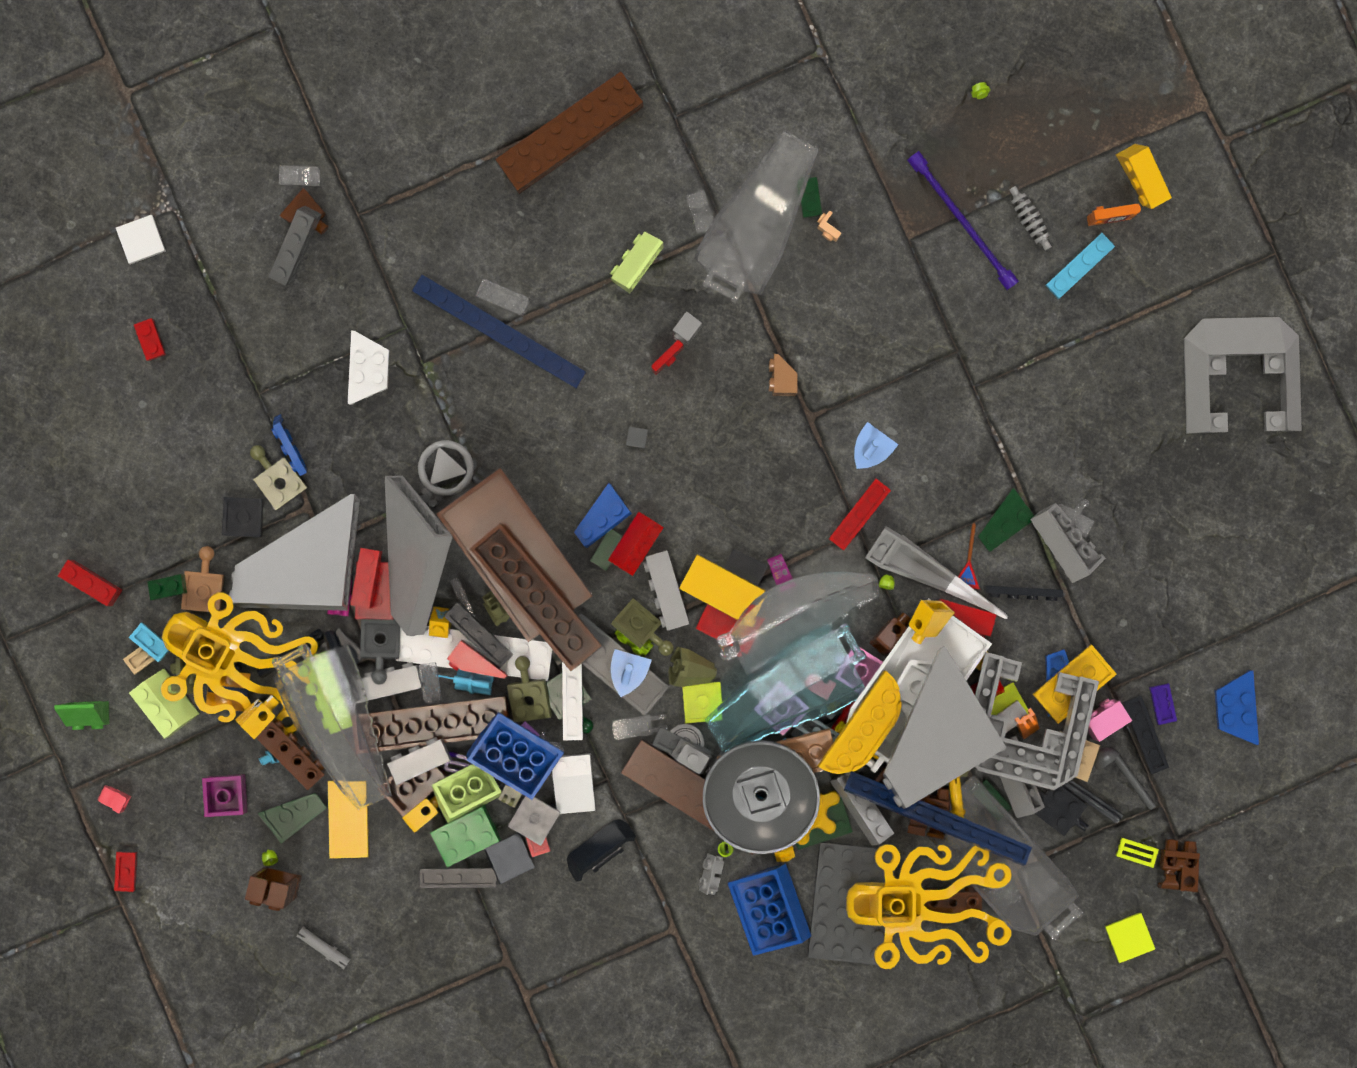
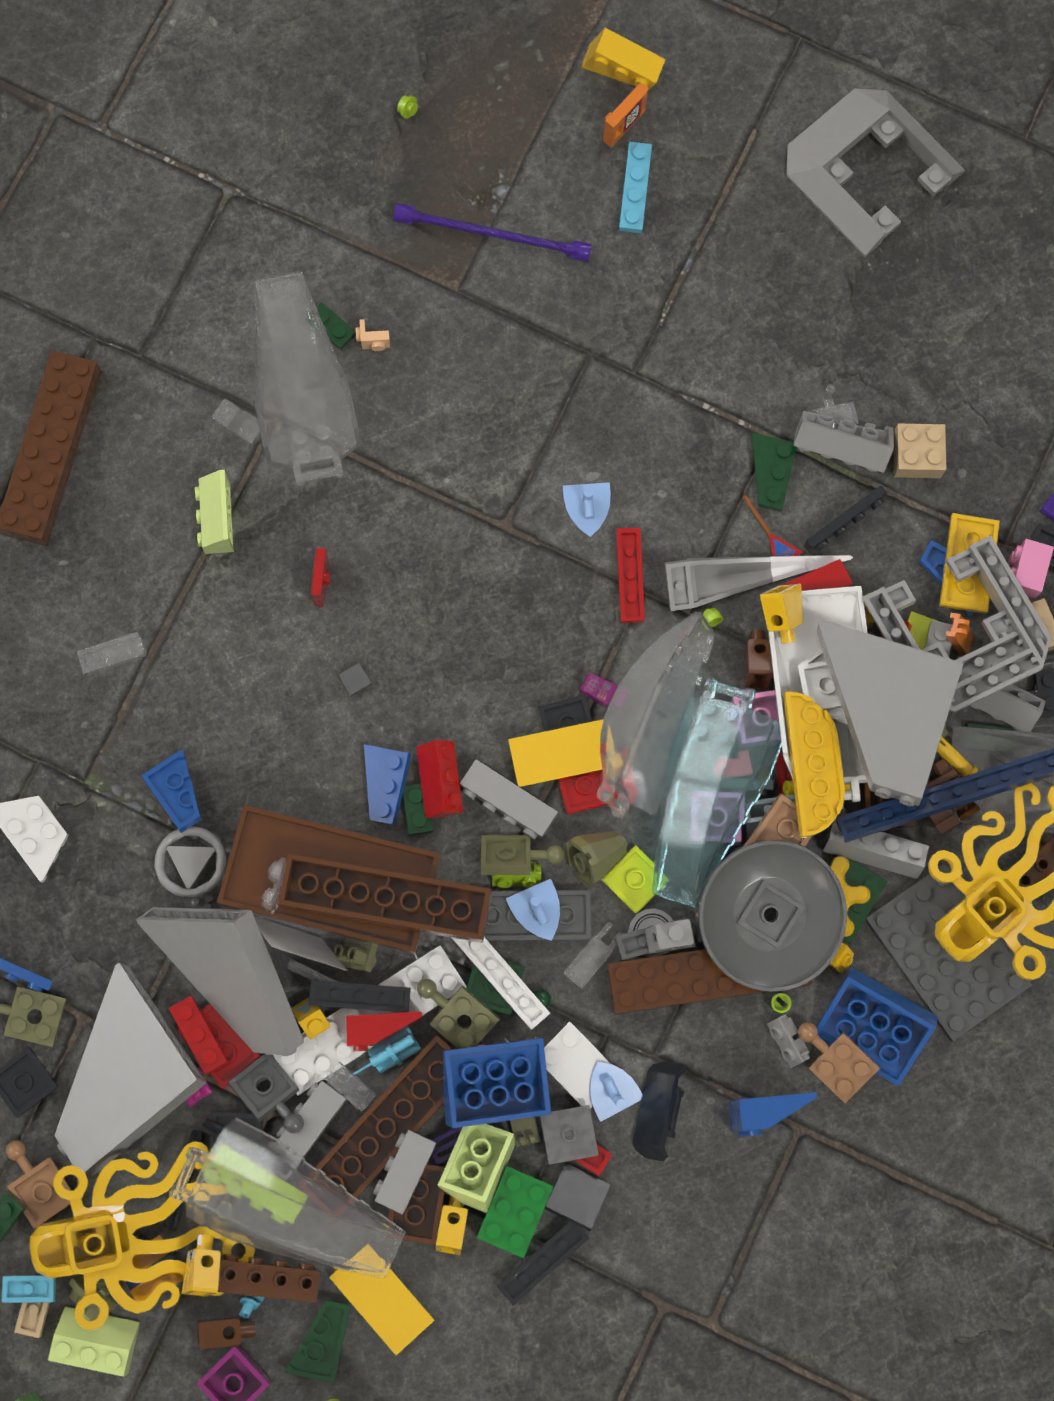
camera: 45 degrees left, 10 degrees down
(235, 755) = (211, 1332): none -> reddish brown torso
(466, 575) = (297, 943): none -> white sticker
(470, 538) = (271, 895): none -> clear slope
(471, 416) = (174, 790): none -> blue wing
(499, 331) = (134, 689): dark blue plate -> none
(582, 814) = (612, 1090): none -> light blue shield
(657, 906) = (754, 1114): none -> blue slope
(686, 329) = (316, 533): light grey brick -> none
(728, 914) = (841, 1065): none -> medium nougat plate
(784, 377) = (448, 505): medium nougat slope -> none
(1030, 218) = (552, 180): light grey piece -> none
(1107, 587) = (919, 451): none -> tan brick

